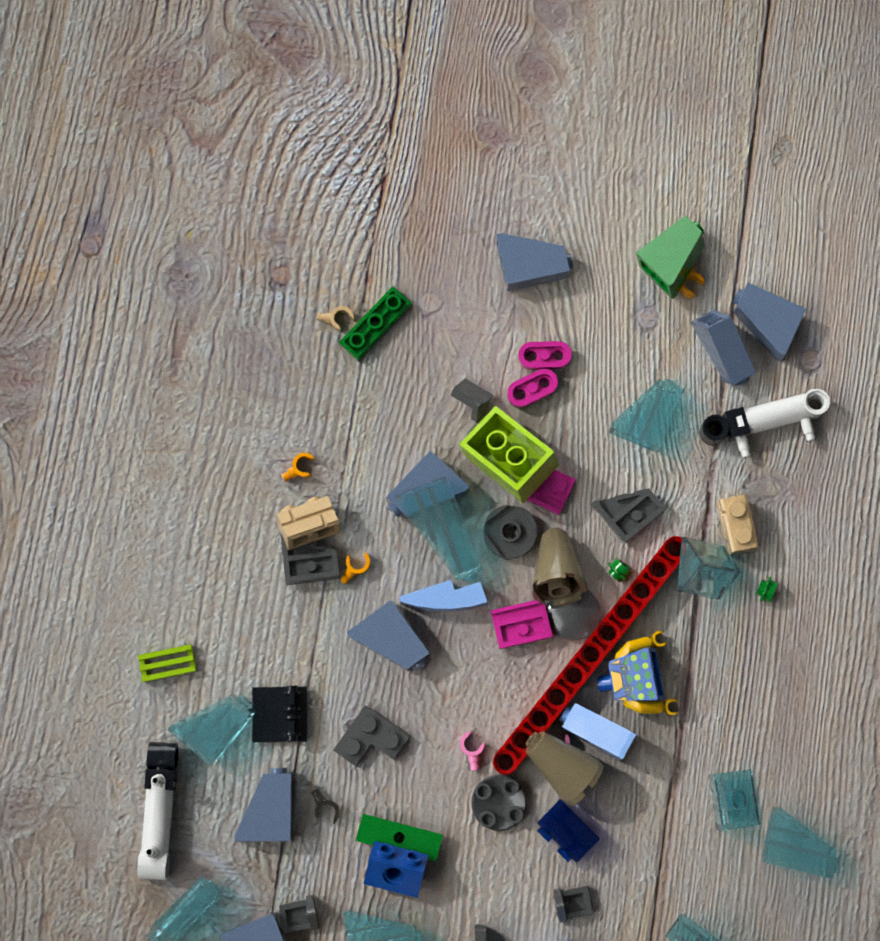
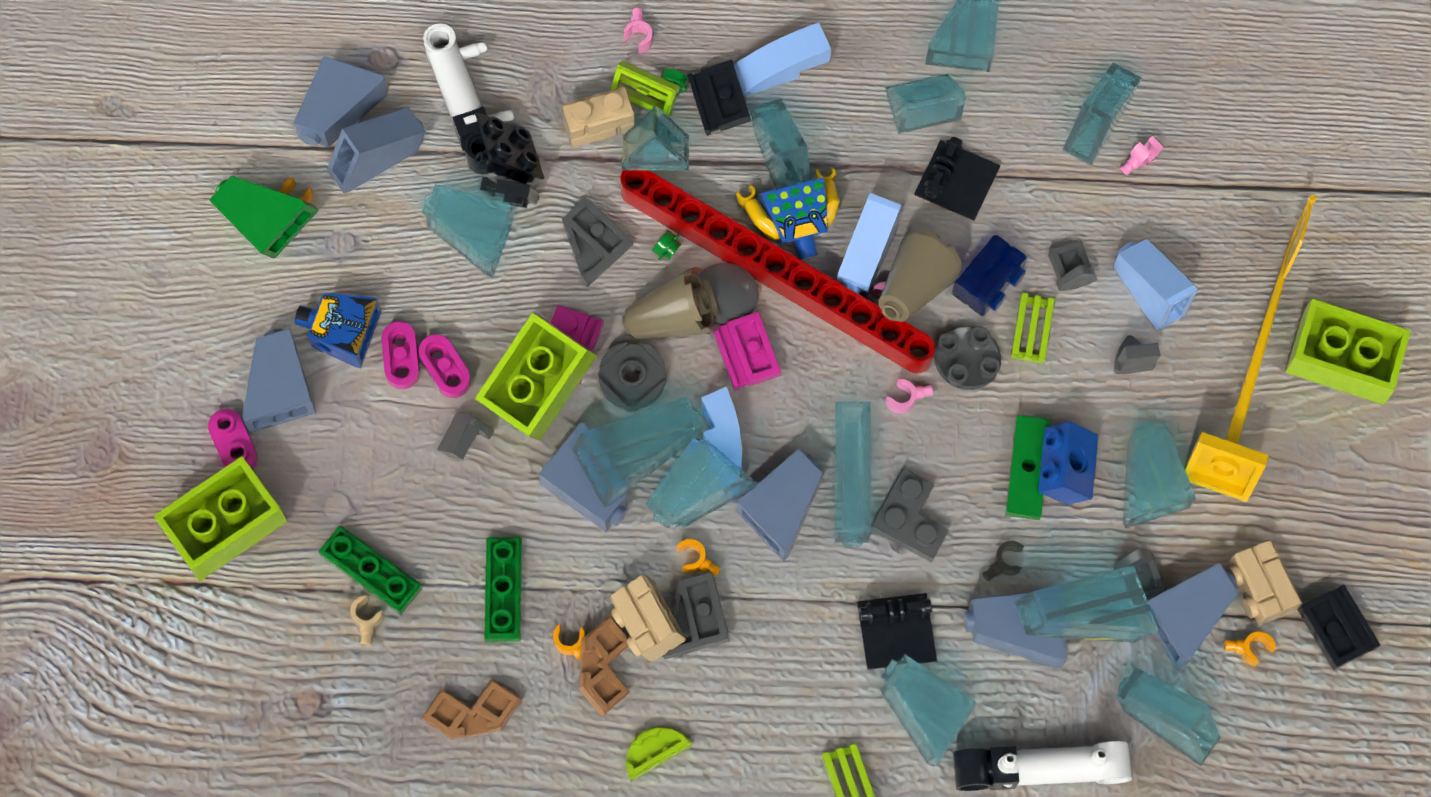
camera: 100 degrees left, 10 degrees down
(212, 519) = (653, 749): none -> lime tile
(252, 381) = (486, 716): none -> medium nougat tile
(268, 481) = (596, 677): none -> medium nougat tile
(272, 870) = (1090, 608): none -> clear light blue slope
(366, 420) = (503, 608): none -> green tile
(404, 693) = (851, 473): none -> clear light blue slope
(408, 571) = (697, 485): none -> clear light blue slope
(422, 215) = (220, 518): none -> lime brick
(488, 228) = (232, 438): none -> dark pink plate
(543, 868) = (1036, 302): none -> lime tile
(572, 311) = (341, 325): none -> torso
(659, 817) = (957, 179): none -> black hinge
(670, 449) = (512, 192): none -> black plate
(699, 671) = (780, 144): none -> clear light blue slope
(712, 449) = (507, 151): none -> black hinge
(749, 627) = (719, 97): none -> black plate
(761, 566) = (646, 84): none -> lime tile
(778, 681) = (783, 59): none -> light blue slope
(825, 567) = (638, 25): none -> bright pink piece

